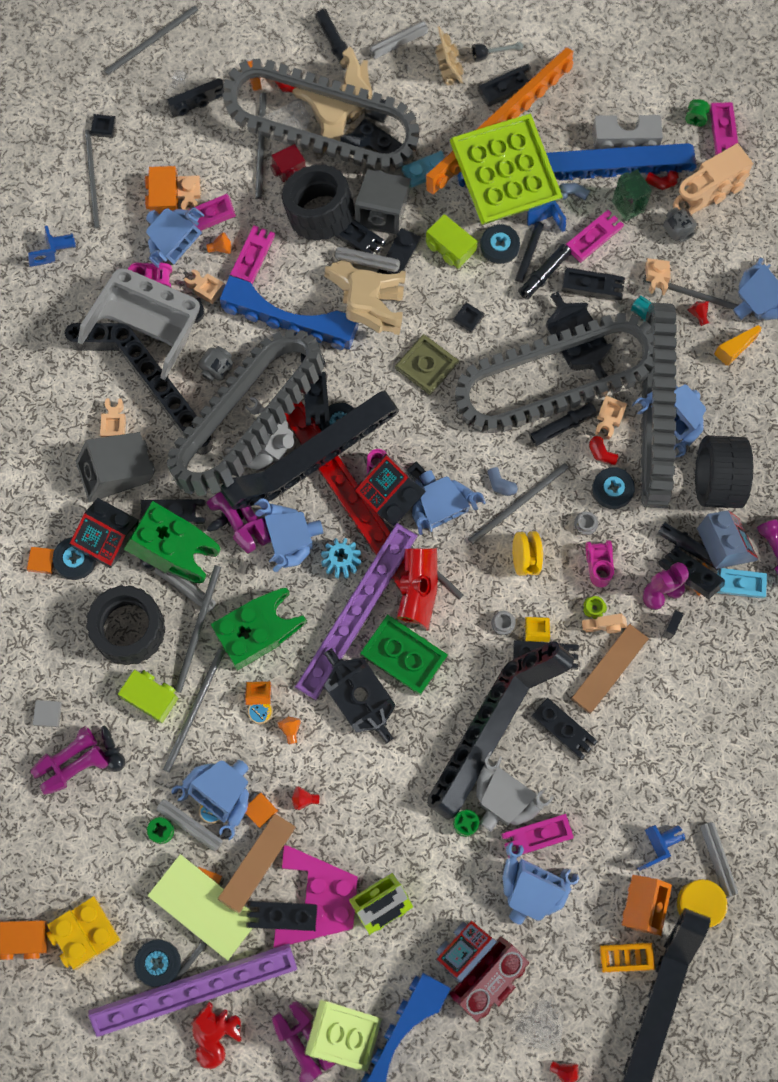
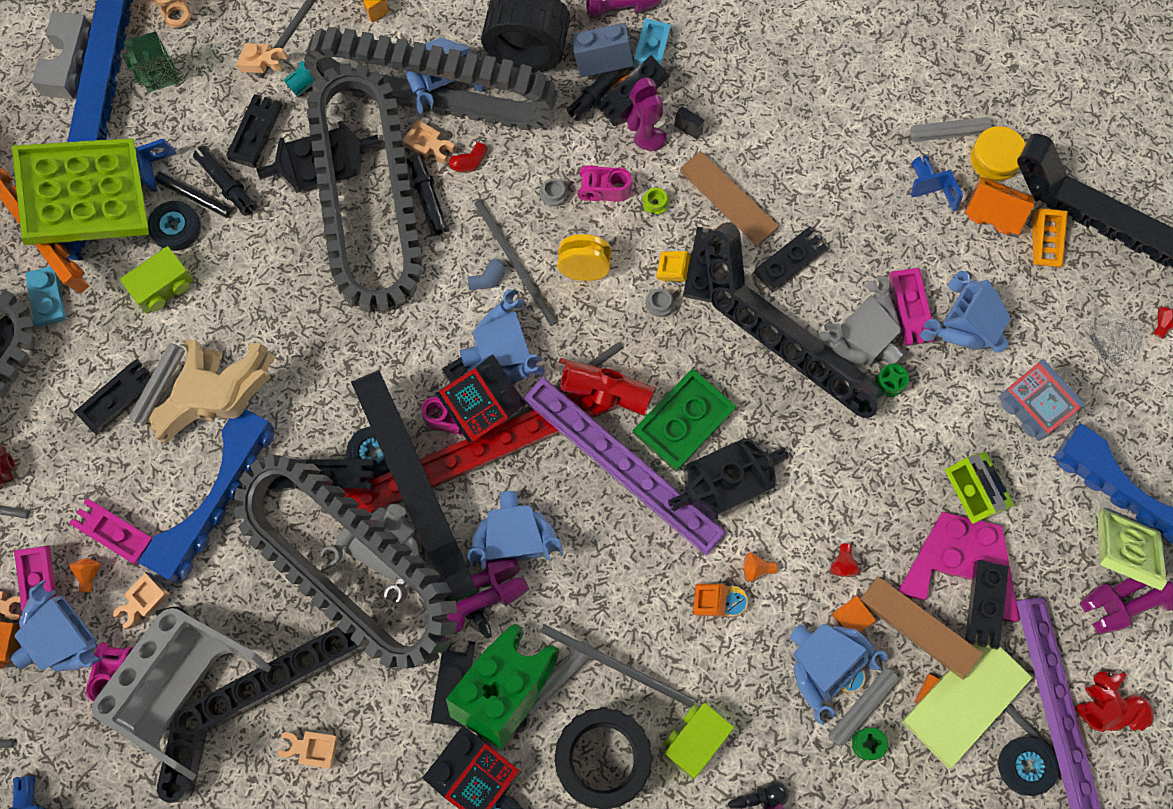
camera: 80 degrees left, 0 degrees up
(114, 465) = (376, 753): dark grey slope -> none
(193, 711) = (719, 685): dark grey axle -> none
(215, 363) = (259, 598): dark grey head -> none
(262, 622) = (628, 580): green brick -> none
(314, 183) = (30, 425): black tyre -> none
(330, 559) = (547, 465): medium azure gear -> none
(382, 201) = (79, 352): dark grey slope -> none
(402, 249) = (151, 342): black hinge -> none
(426, 364) = (315, 337): olive tile -> none
(468, 317) = (264, 278): black tile -> none
(490, 980) = (1077, 377): dark red piece -> none
(575, 189) = (124, 126): sand blue arm -> none
(594, 236) = (192, 118): dark pink hinge -> none
(608, 498) = (528, 160): black bush -> none
(608, 623) = (681, 184): light nougat plate -> none
(662, 182) = (139, 25): red arm -> none
(680, 224) = (202, 21): dark grey head -> none
(699, 310) = (315, 22): red rock -> none

